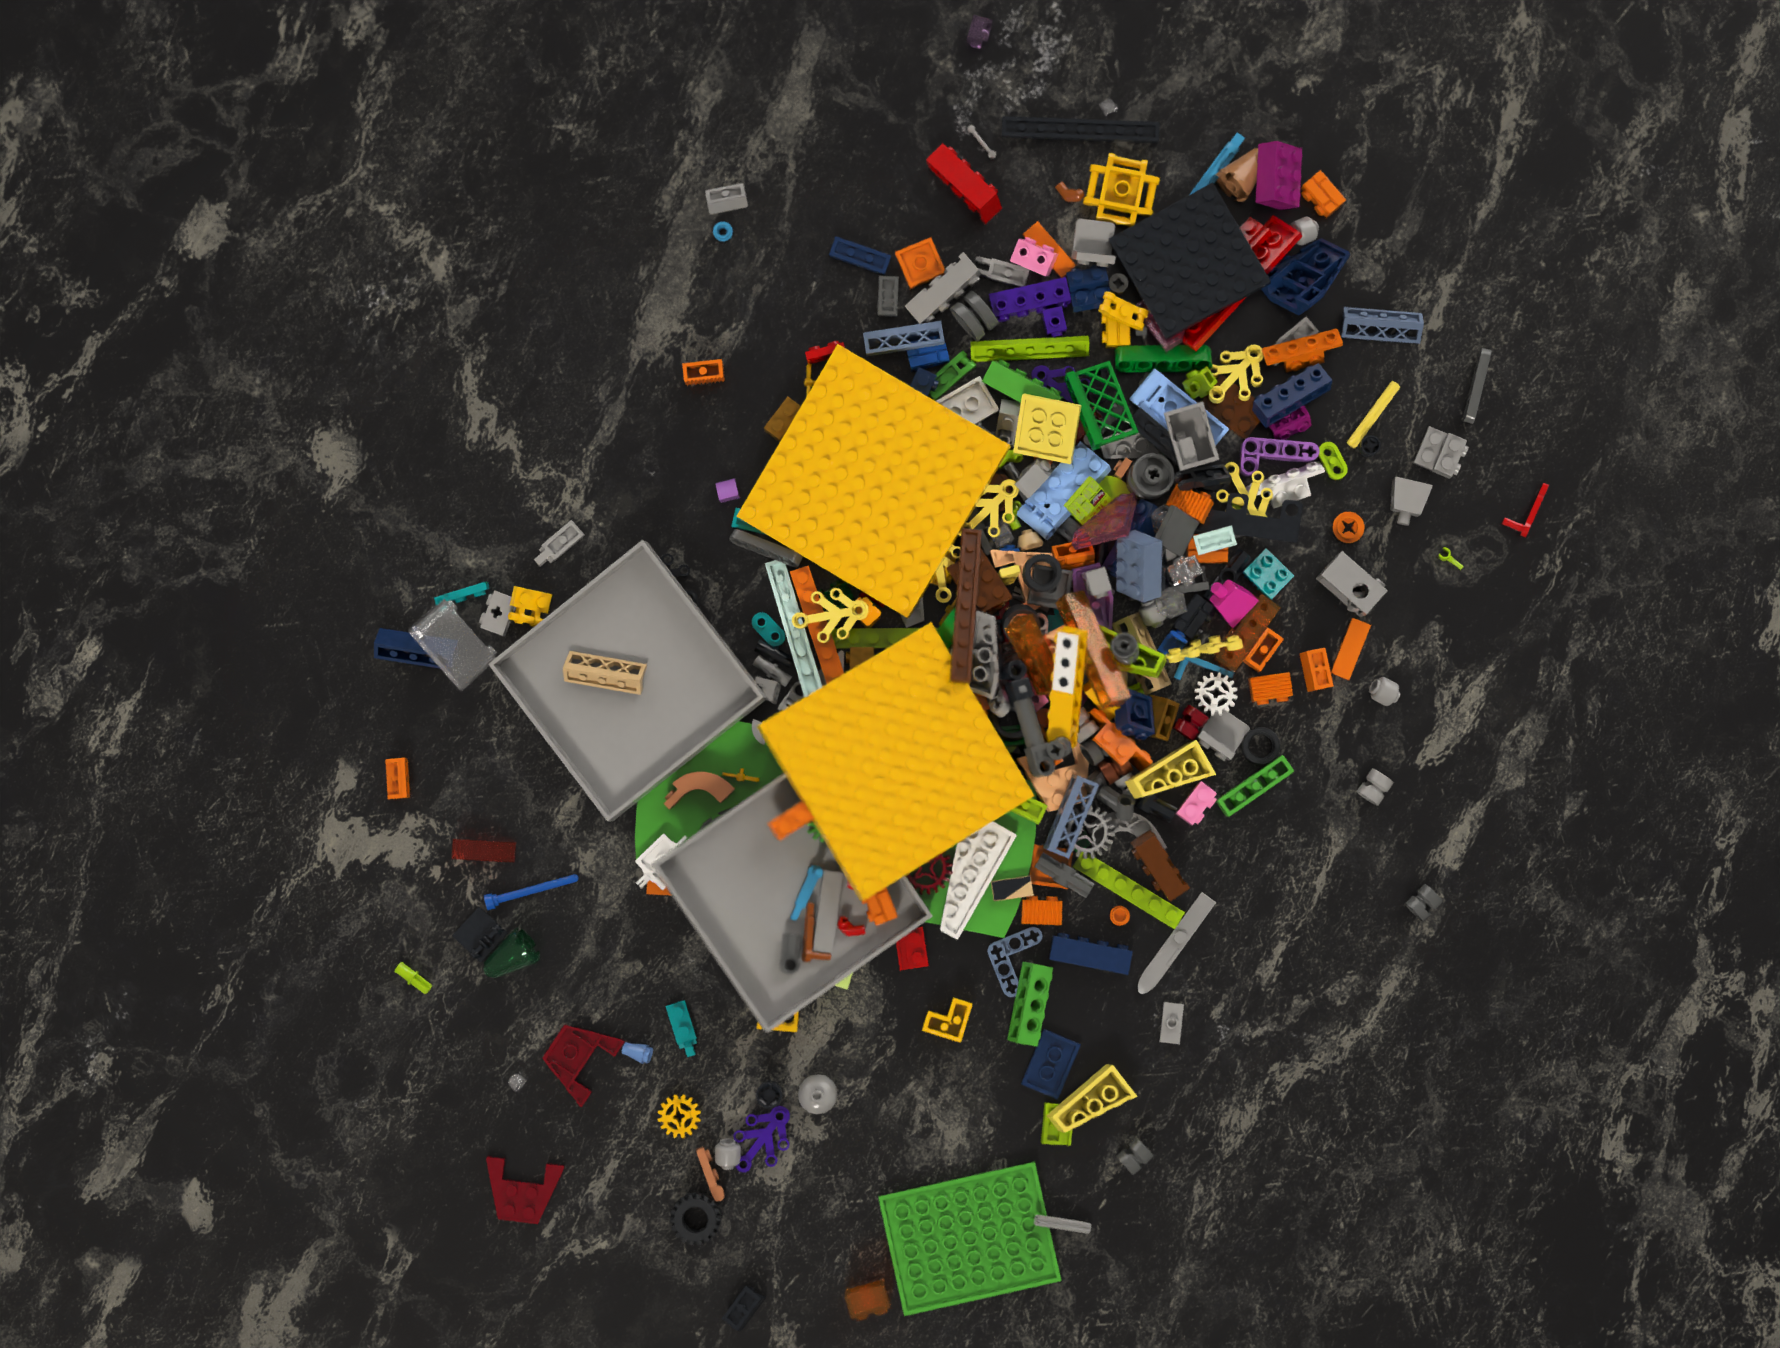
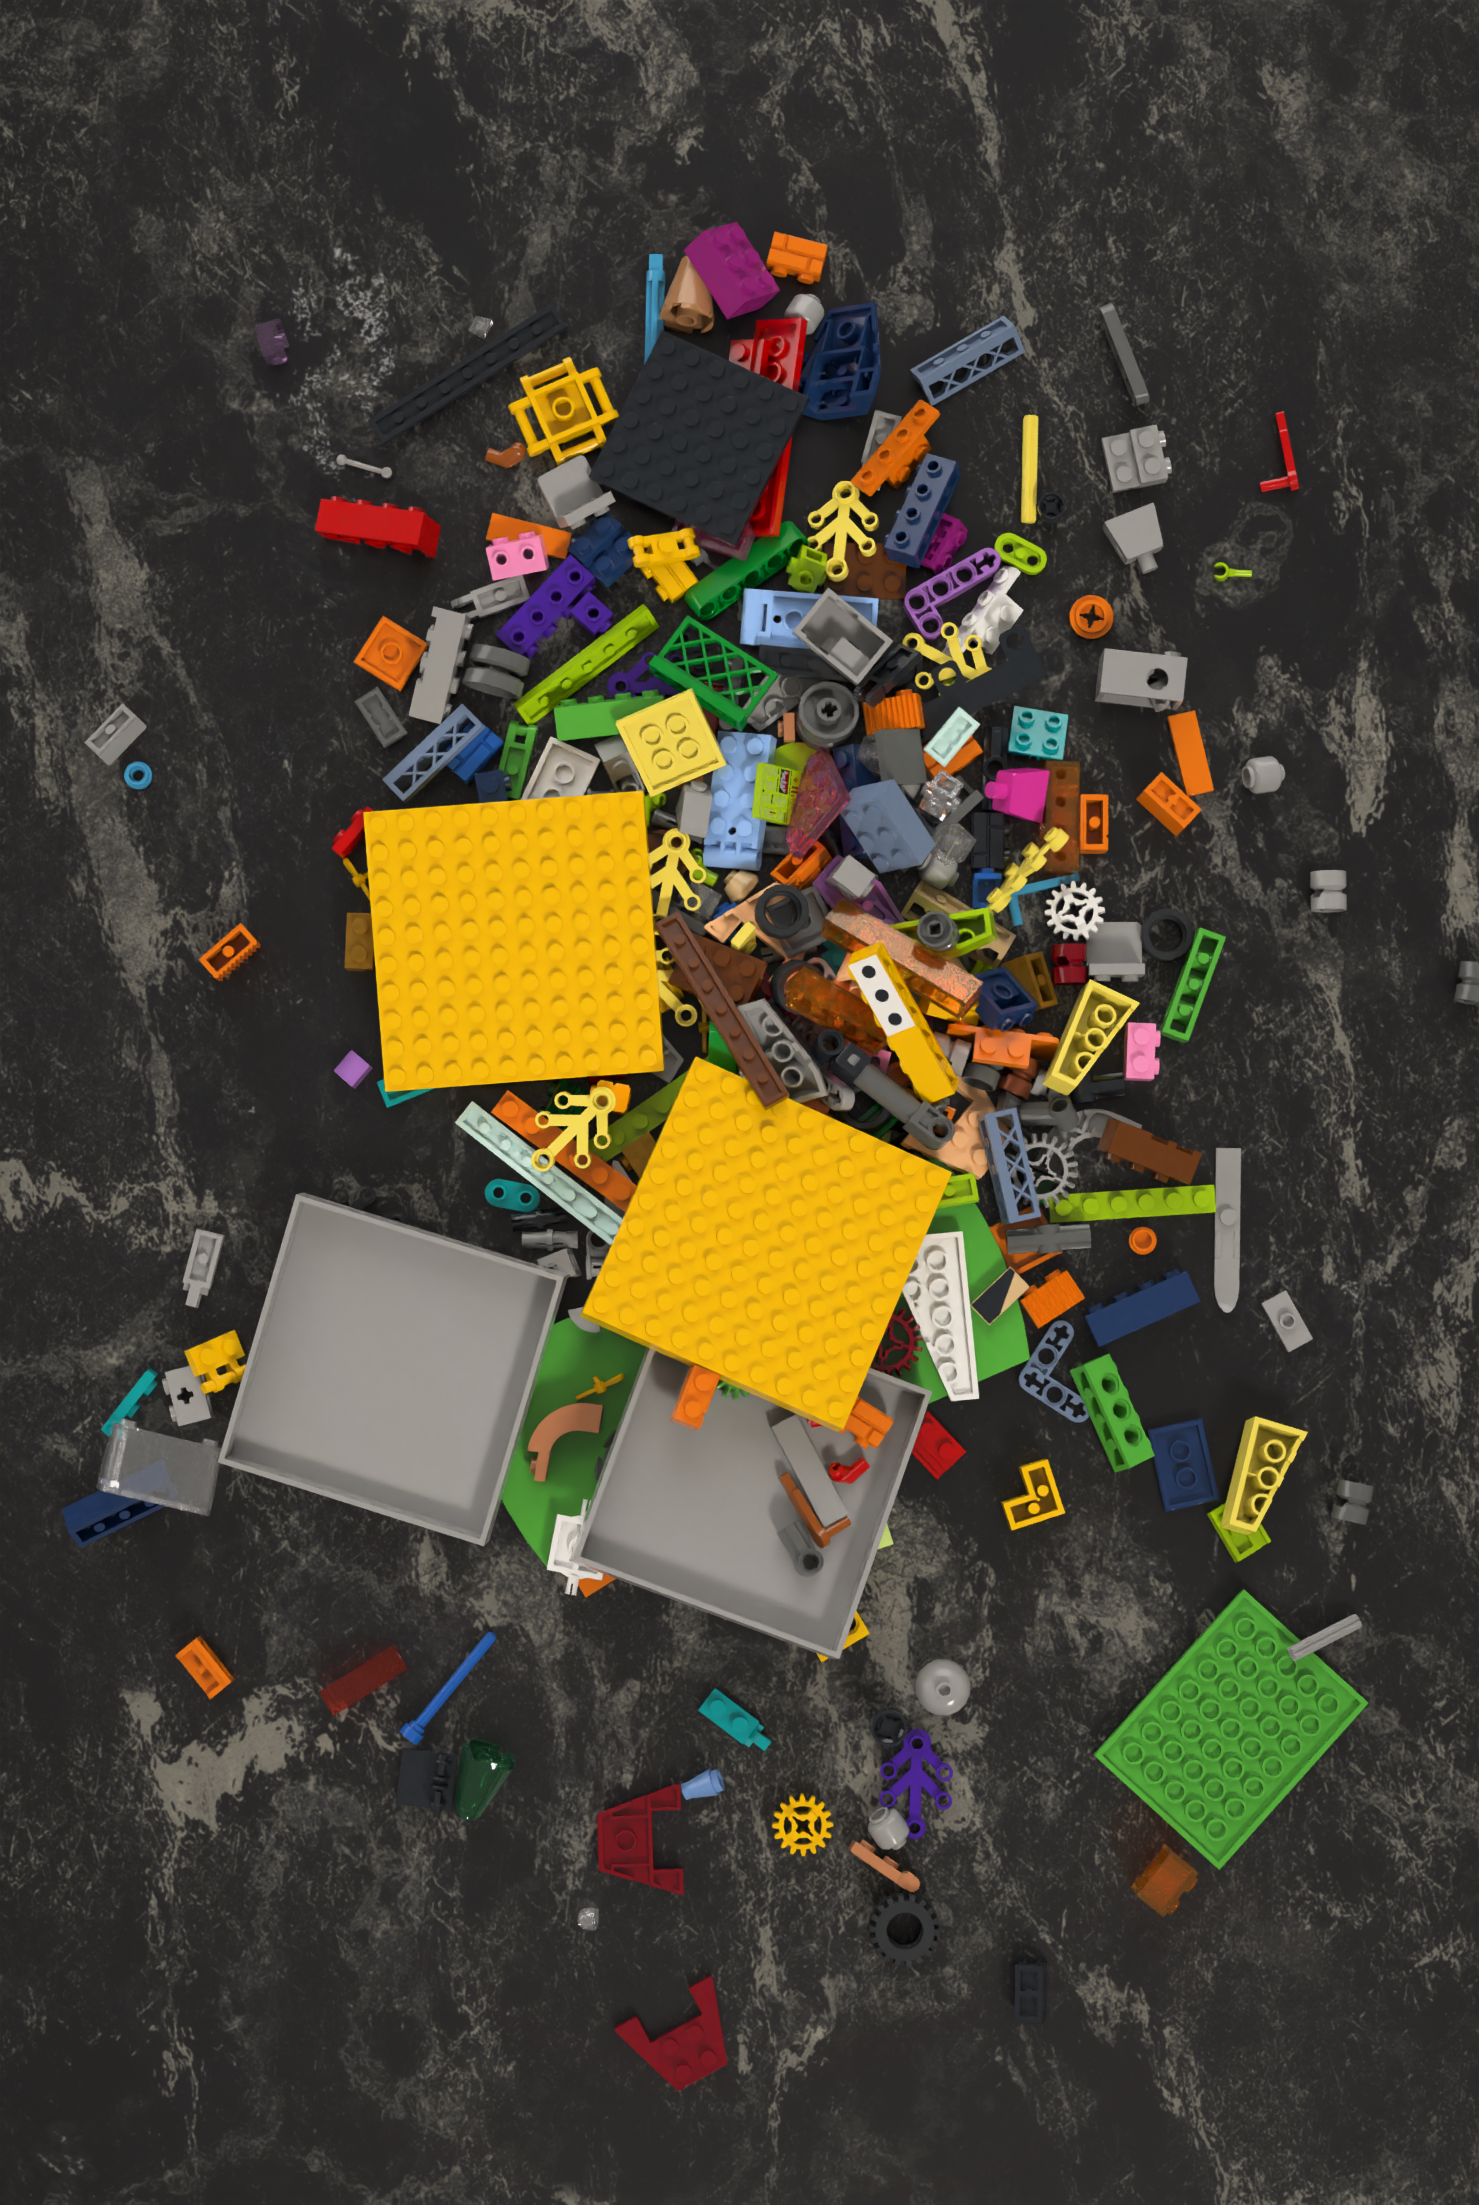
camera: 45 degrees left, 0 degrees up
(413, 978) = (385, 1884): lime axle -> none
(602, 676) = (359, 1383): tan fence -> none
(765, 548) = (444, 1104): dark grey beam -> none
(813, 874) = (764, 1438): dark azure piece -> none
(860, 255) = (316, 693): dark blue plate -> none
(1061, 744) = (942, 1091): dark grey wheel -> none
(1116, 287) = (636, 526): dark grey wheel -> none
(1270, 687) = (1131, 861): orange brick -> none

